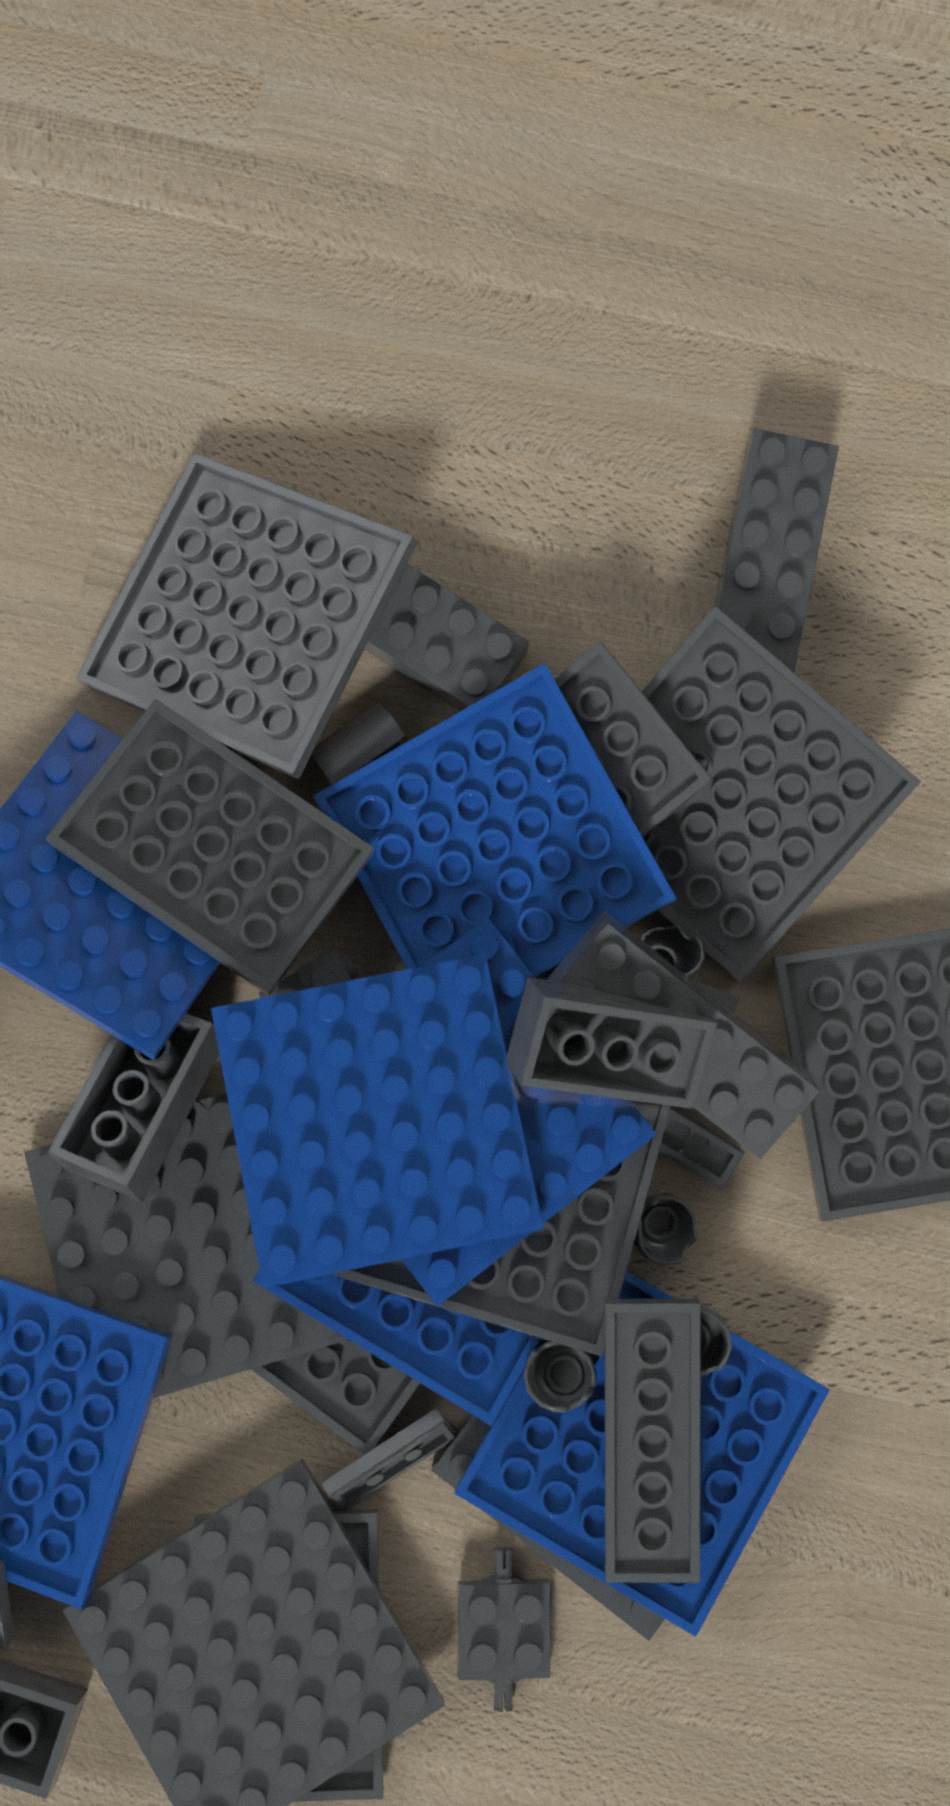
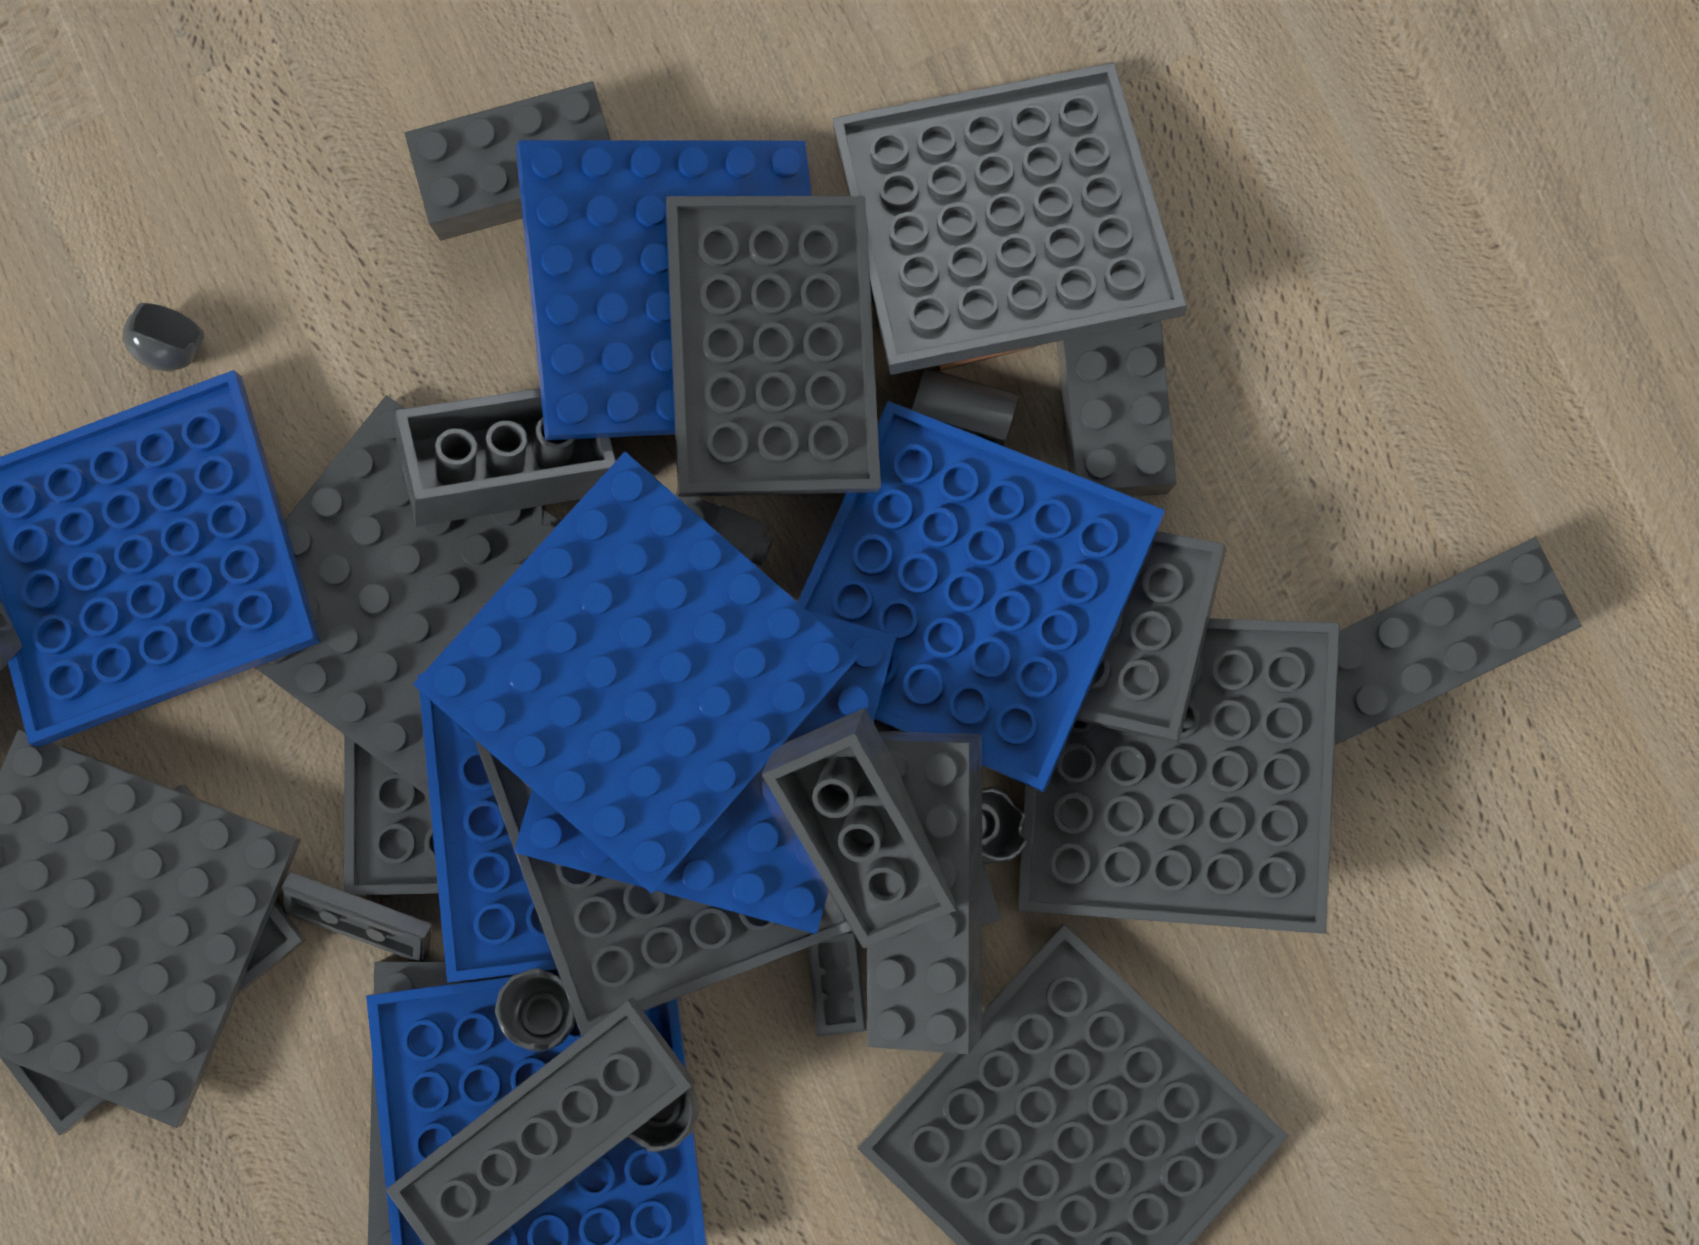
camera: 55 degrees right, 0 degrees up
(503, 1629) = (283, 1132): dark grey plate -> none
(665, 1229) = (741, 1009): dark grey hair -> none

